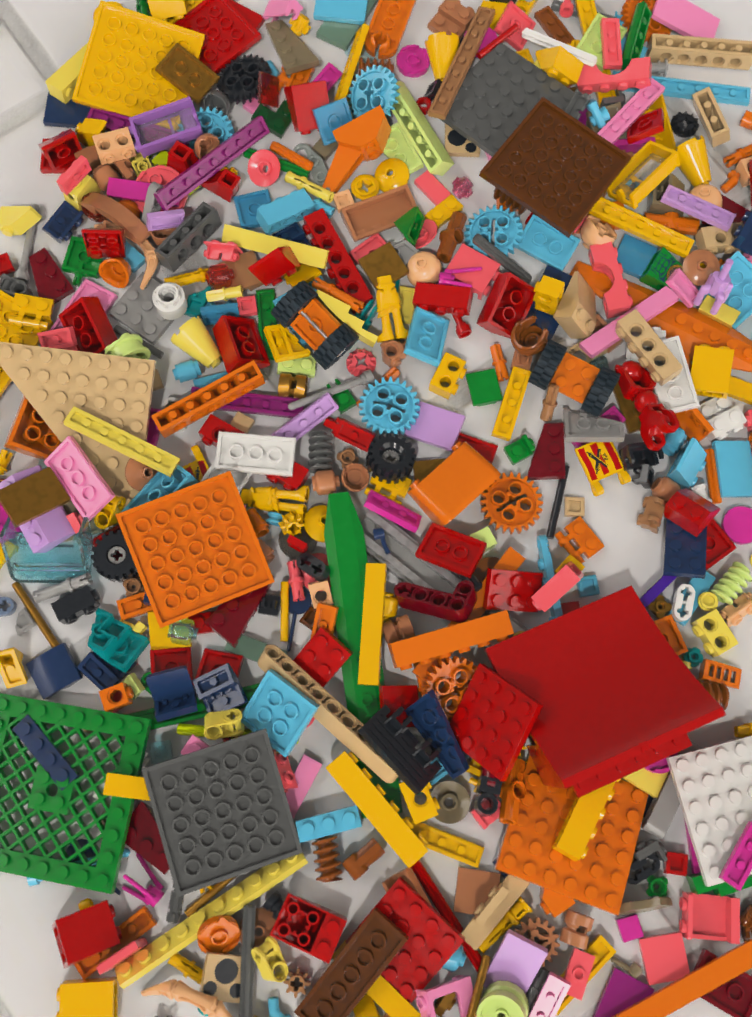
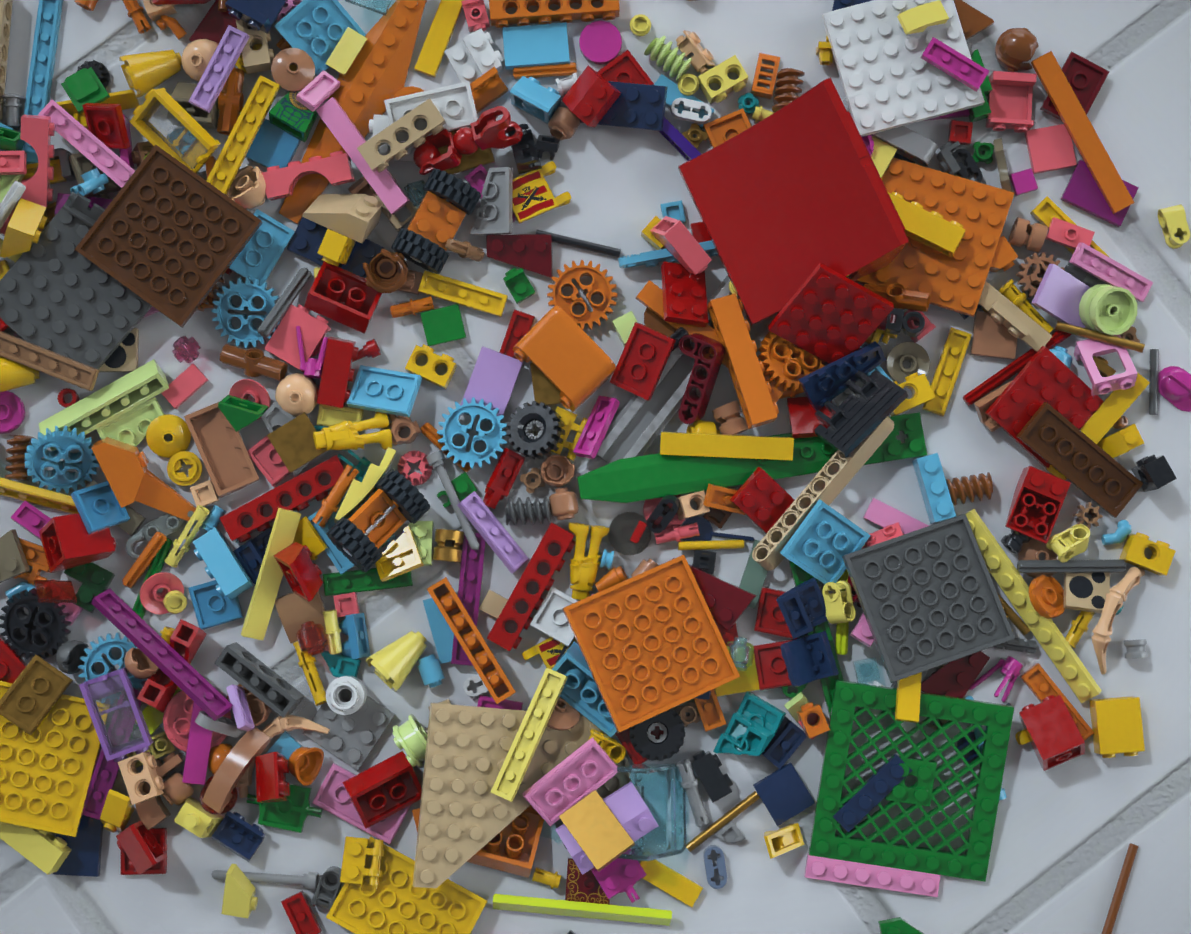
camera: 90 degrees left, 10 degrees up
(48, 277) = (311, 848): dark red wing -> none
(59, 338) = (400, 824): coral plate -> none
(74, 174) = (200, 825): coral plate -> none
(75, 520) = (620, 781): coral plate -> none
(121, 955) = (1071, 692): coral tile -> none
(139, 627) = (734, 705): light yellow hand -> none
(158, 353) = (389, 736): dark grey bar -> none
(230, 251) = (274, 646): coral hinge -> none
(239, 342) = (399, 609): red slope -> none
(255, 454) = (535, 583): white tile -> none
(256, 178) = (175, 601): none -> light yellow tile
(291, 524) = (615, 539): yellow gear -> none
(313, 523) = (609, 516): yellow dish -> none
(360, 861) = (971, 456): dark orange piece -> none
(377, 809) = (918, 438): yellow brick -> none
(379, 534) = (625, 441): dark blue hand -> none
(433, 89) = (48, 385): black tile -> none
(443, 211) = (216, 372): yellow plate -> none
(574, 507) = (583, 225): tan tile -> none
(583, 538) = (619, 215): orange plate -> none
(634, 970) = (1063, 178): dark tan hand -> none
(652, 514) = (590, 138): medium nougat piece -> none
(674, 442) = (514, 111): medium azure brick -> none
(676, 114) = (84, 88): none -> green piece
(711, 117) = (86, 45): tan brick -> none
(712, 370) = (422, 64): yellow brick -> none
(717, 285) = (324, 53): lavender plant -> none

